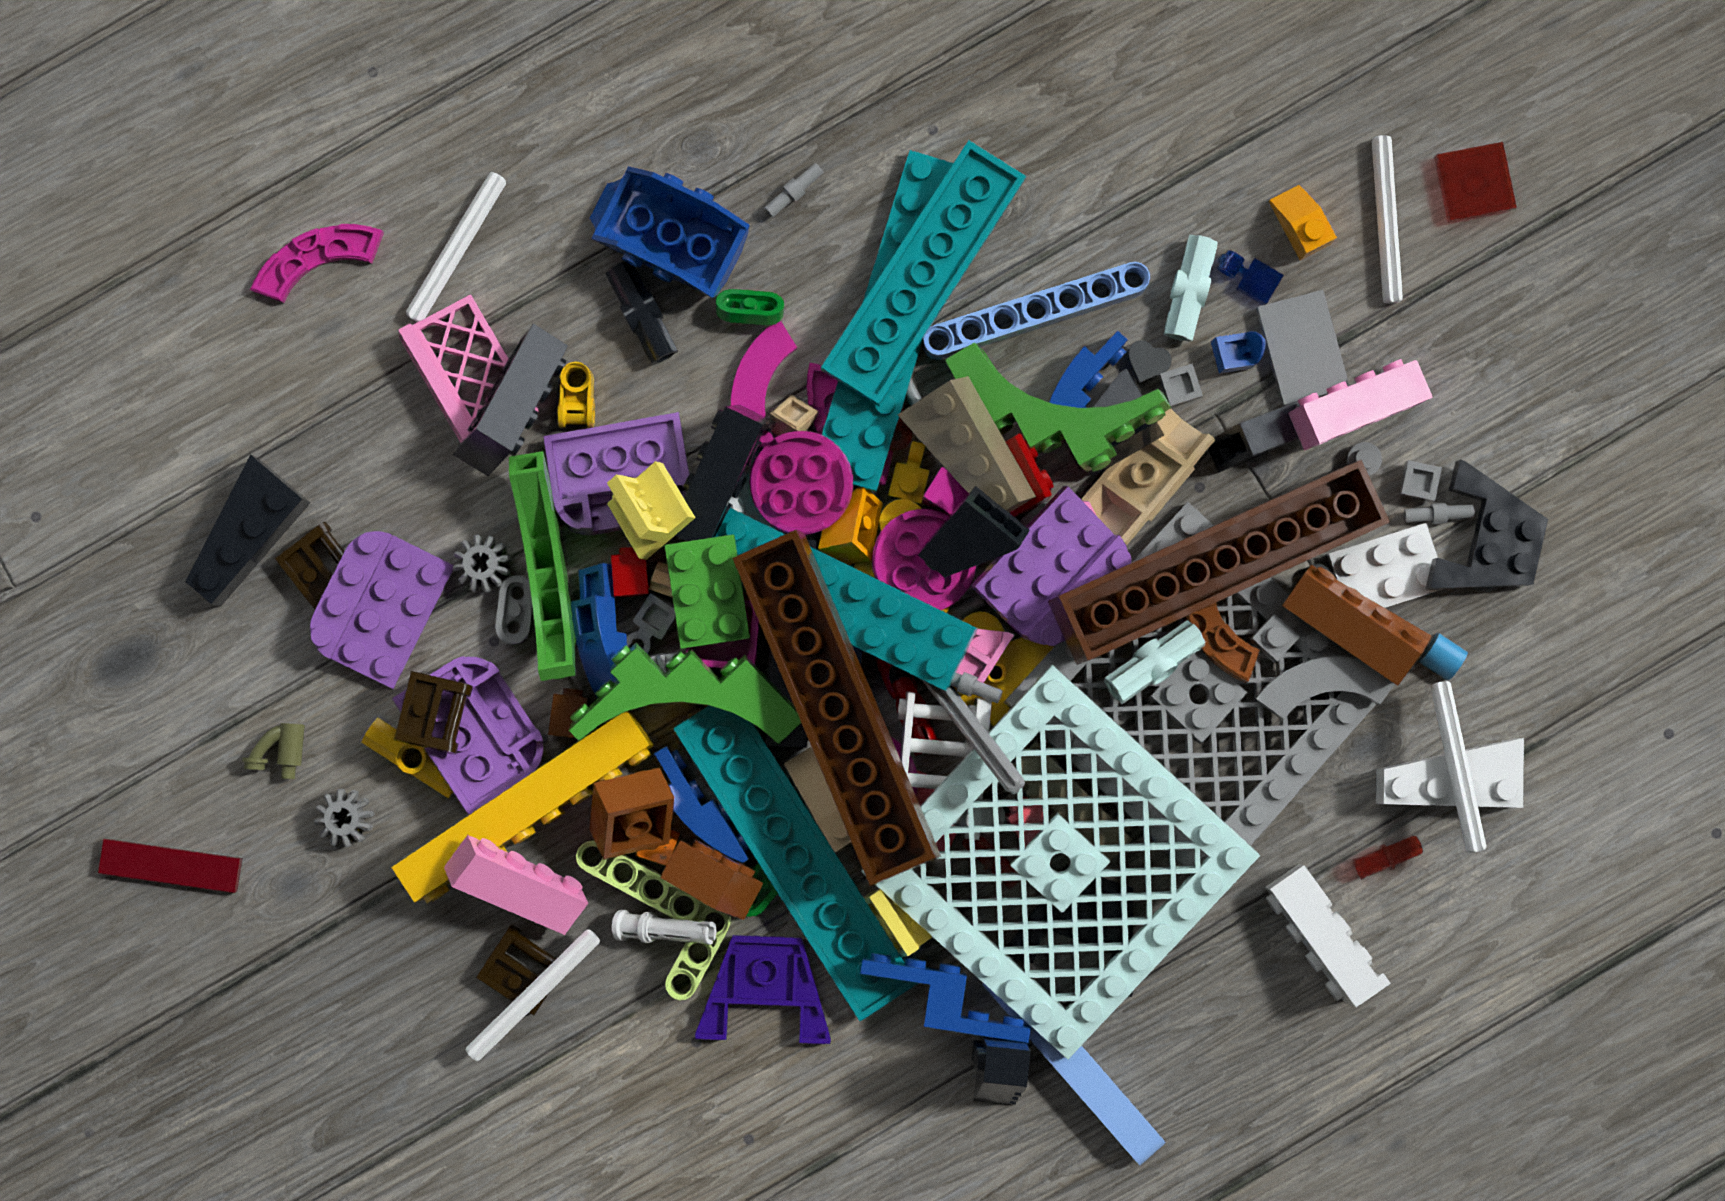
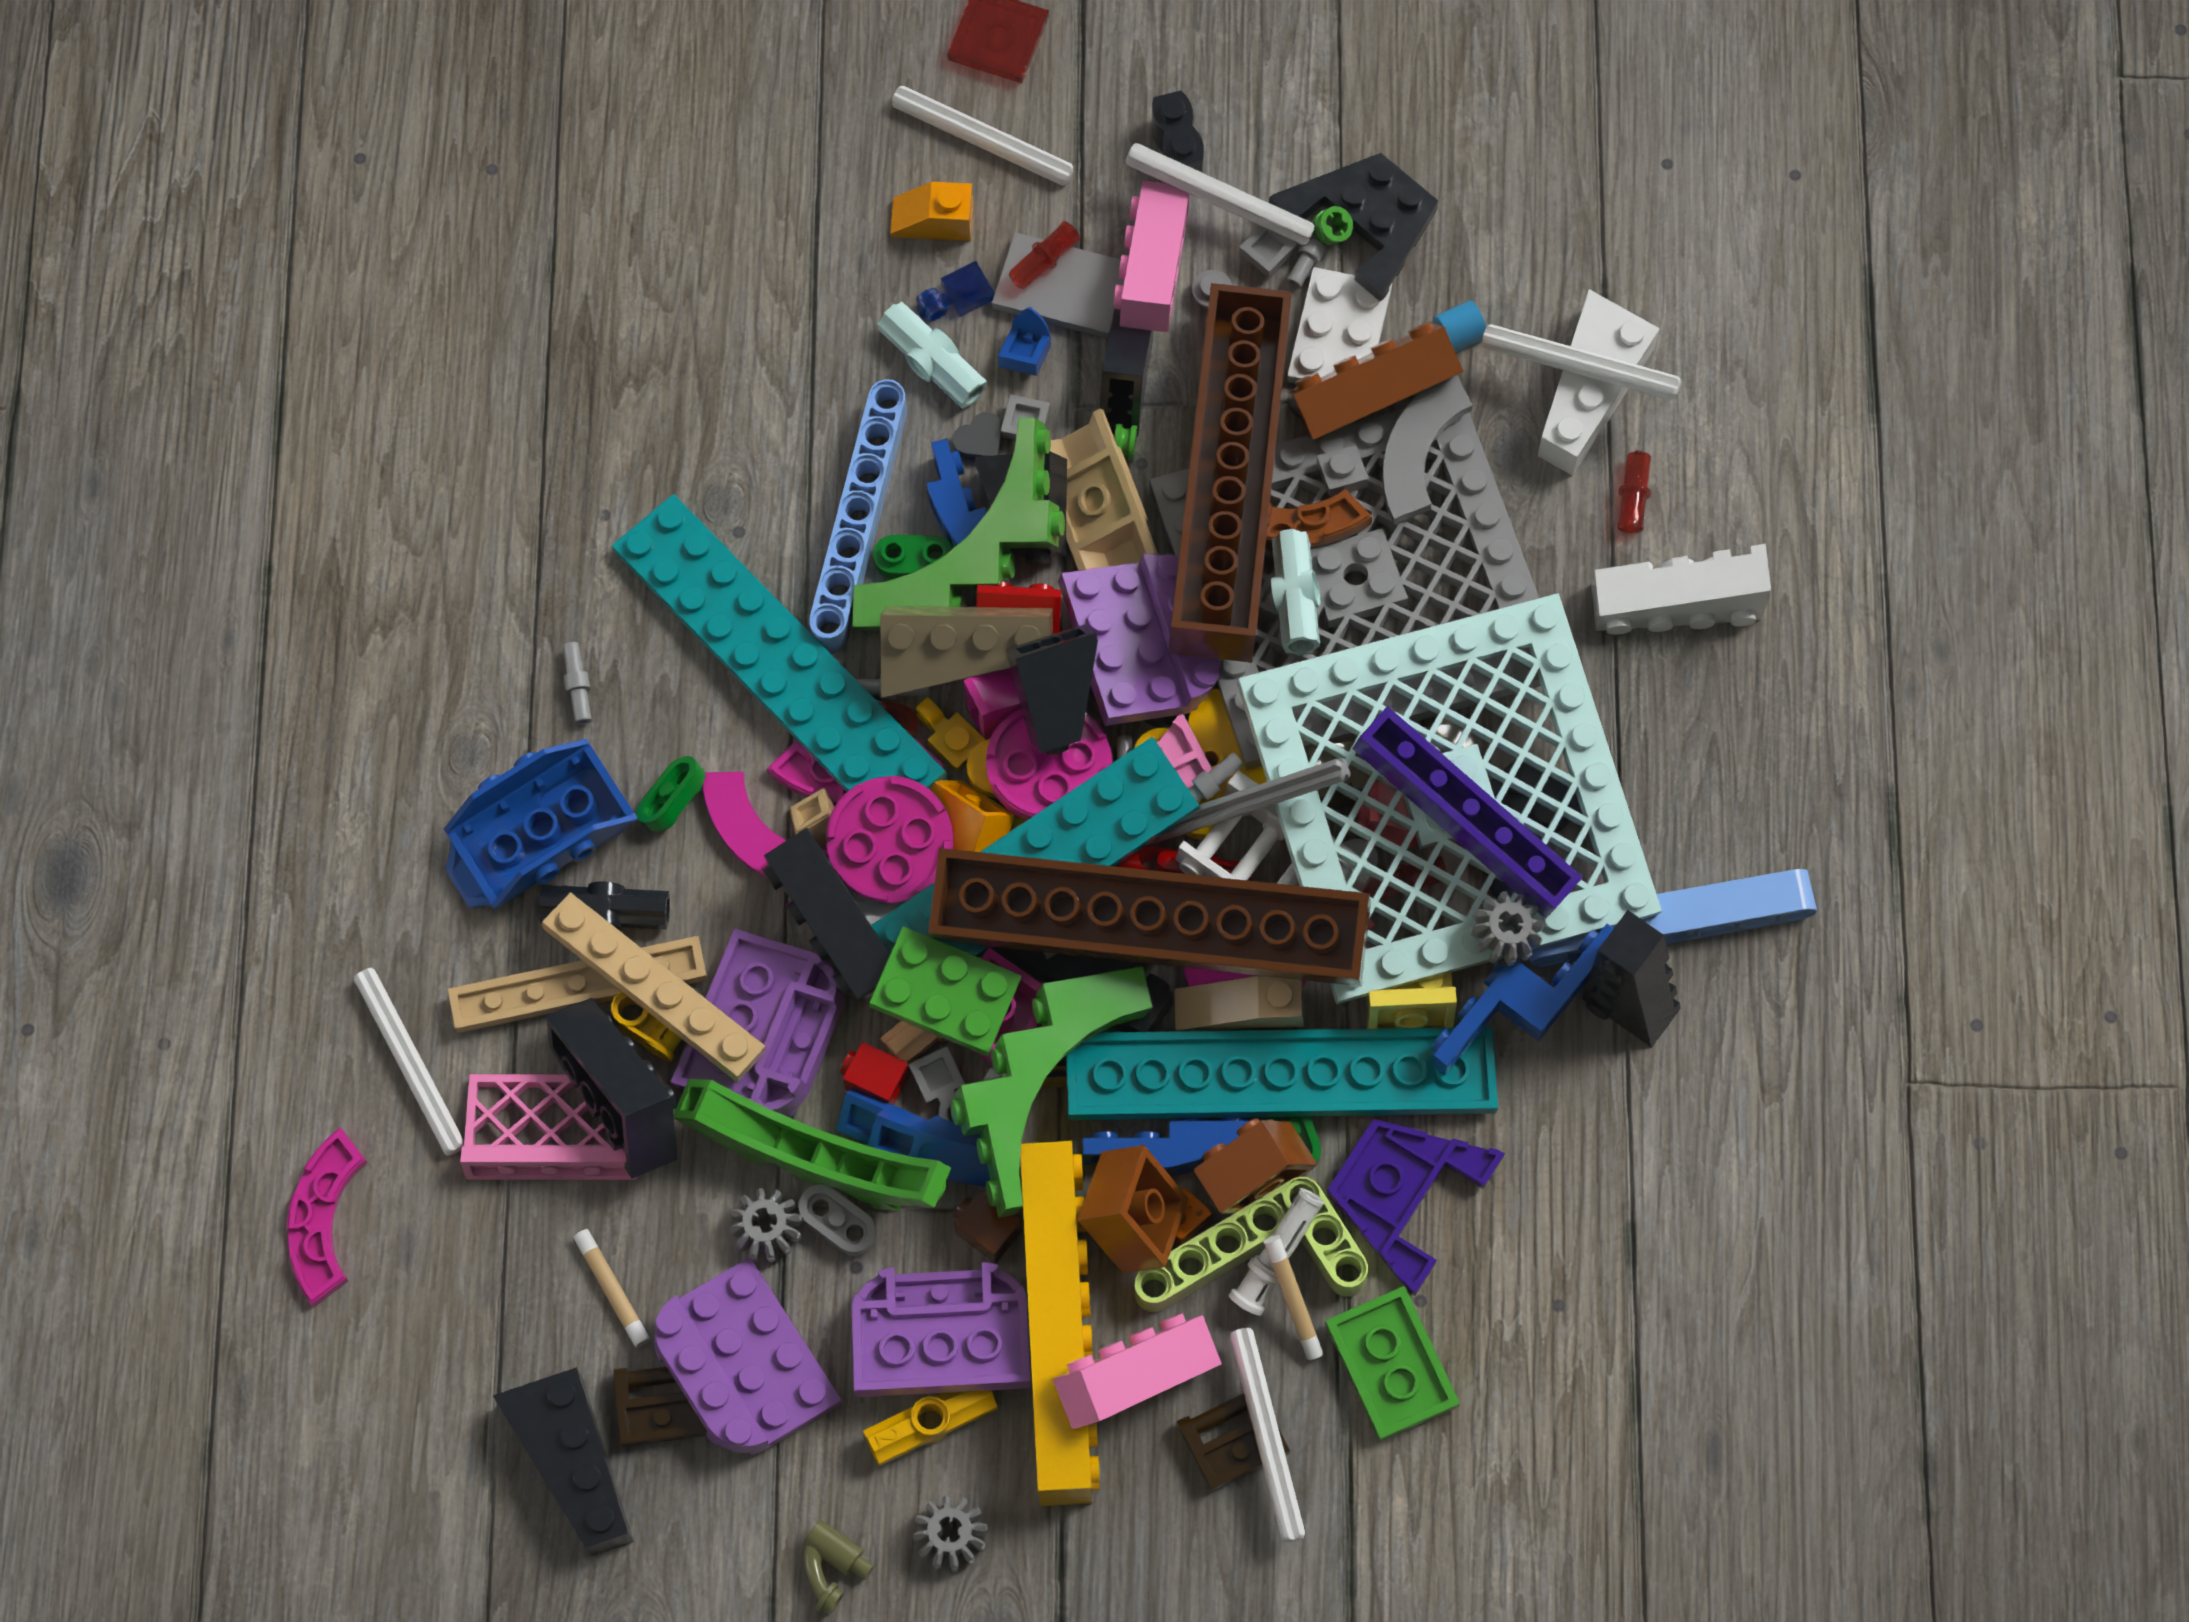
camera: 55 degrees left, 15 degrees down
(380, 484) = (611, 1288): none -> tan bar
(421, 710) = (887, 1362): dark brown plate -> none
(576, 328) = (559, 987): none -> tan plate
(597, 384) = (654, 987): none -> tan plate
(636, 1049) = (1392, 1363): none -> bright green plate
(638, 957) = (1293, 1297): none -> tan bar
(649, 508) = (820, 1004): light yellow bracket -> none
(923, 273) = (750, 596): teal plate -> none
(968, 968) = (1506, 913): none -> light grey gear
(1032, 367) = (913, 553): none -> green plate
(1045, 888) = (1466, 812): none -> dark purple brick
(1206, 467) = (1126, 440): none -> bright green bush
(1314, 323) = (1044, 255): none -> clear red axle
(1438, 423) = (1220, 194): none -> white axle
(1465, 368) = (1175, 131): none -> black brick
(1475, 518) = (1341, 219): none -> bright green bush

